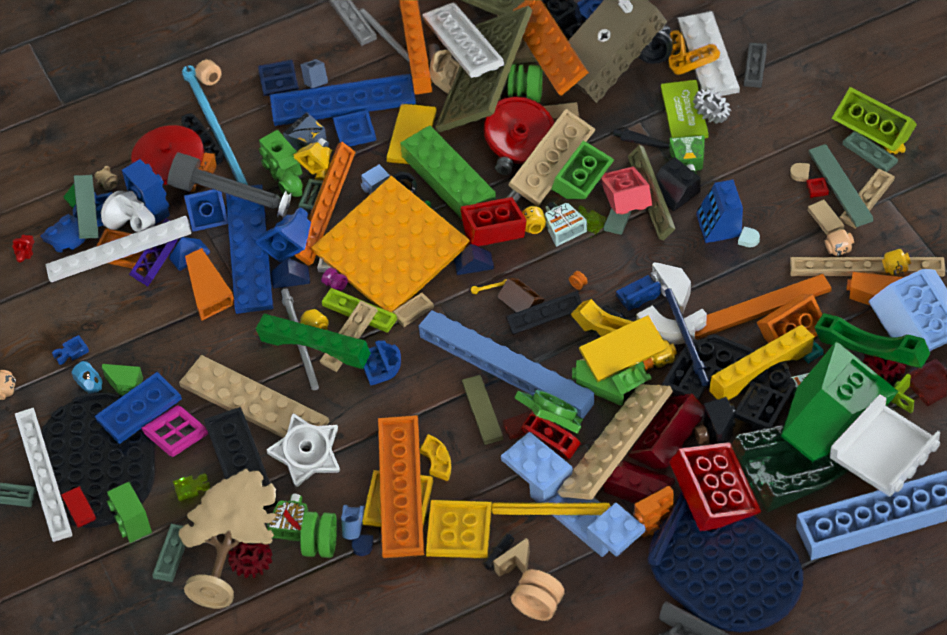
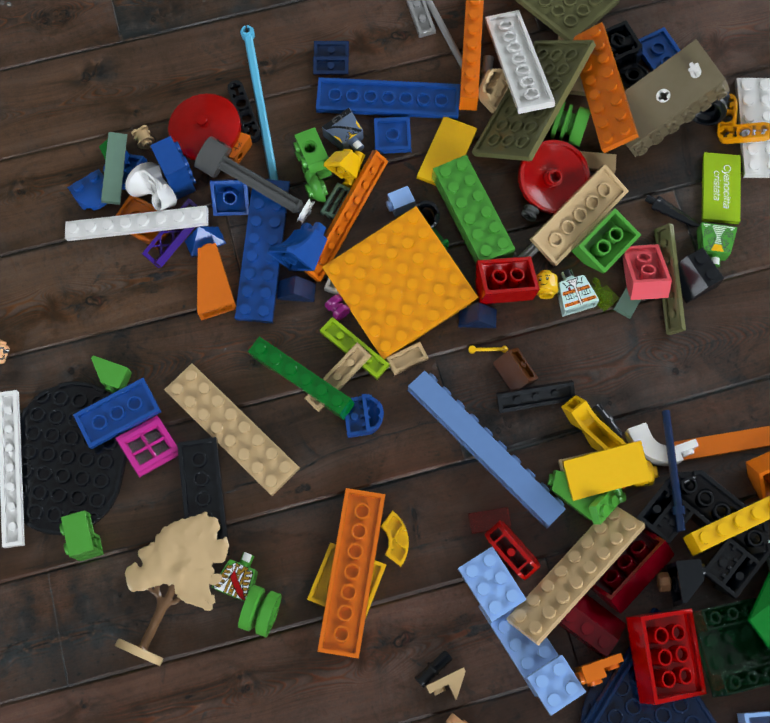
camera: 10 degrees right, 20 degrees up
(23, 247) = (48, 198): red piece -> none
(71, 349) = (70, 326): blue plate -> none
(78, 506) = (37, 513): red tile -> none
(87, 377) = (78, 362): dark azure rock -> none
(170, 555) = (114, 587): sand green tile -> none
(188, 488) = (147, 514): clear neon green plate -> none
(208, 72) = (264, 37): light nougat head -> none
(246, 558) = (193, 622): dark red gear -> none
(288, 303) = (288, 319): light grey bar -> none
(306, 436) = (264, 516): white plate -> none
(314, 73) = (366, 63): sand blue brick -> none
(315, 319) = (307, 353): yellow head -> none
(352, 521) = (297, 594): medium blue piece -> none
(362, 545) = (302, 623): dark blue tile -> none
(459, 529) = (400, 631): yellow plate -> none
(482, 409) = (451, 493): olive tile -> none
(508, 508) = (496, 635): yellow axle -> none
(552, 409) = (519, 526): bright green plate -> none
(578, 280) = (576, 365): orange bush -> none
(639, 292) = (633, 393): blue bracket -> none
(673, 278) = (670, 393): white slope -> none
(711, 105) = (750, 191): light grey gear -> none
(721, 213) = (736, 324): blue slope -> none
(749, 237) = (756, 354): light aqua tile -> none

